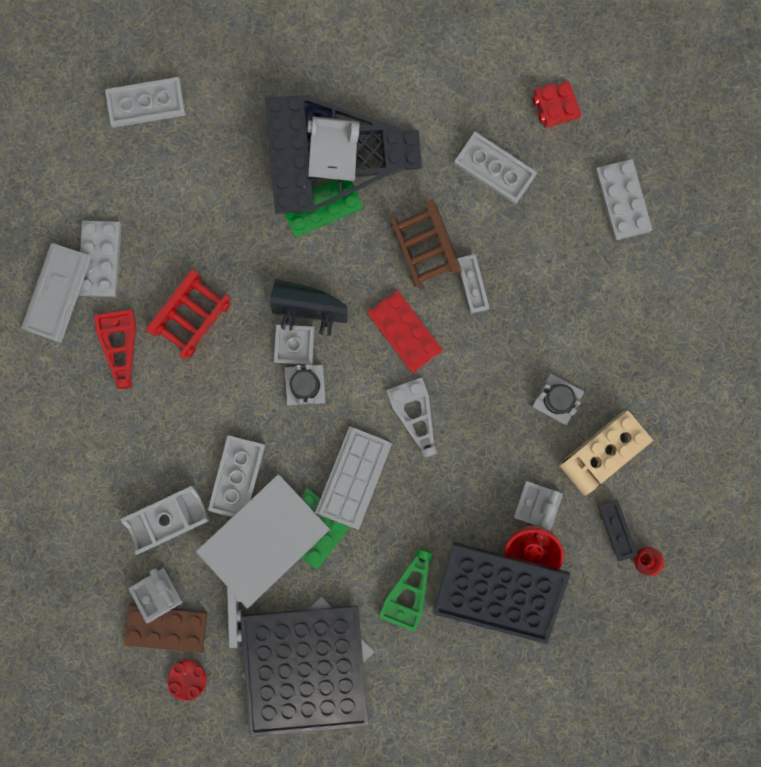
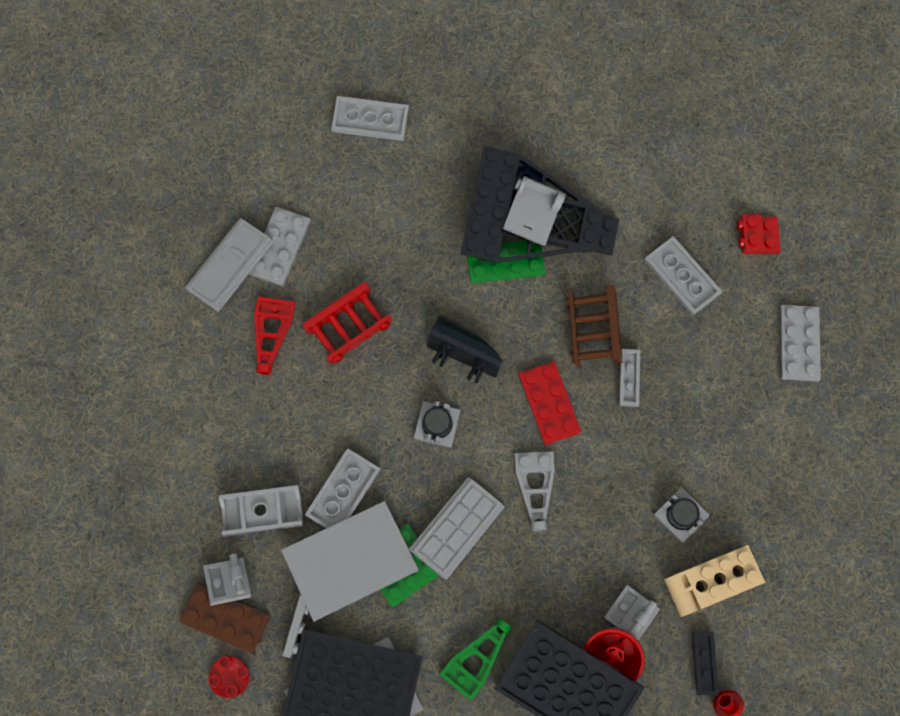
camera: 15 degrees right, 10 degrees down
(294, 345) = (438, 382): light grey plate -> none

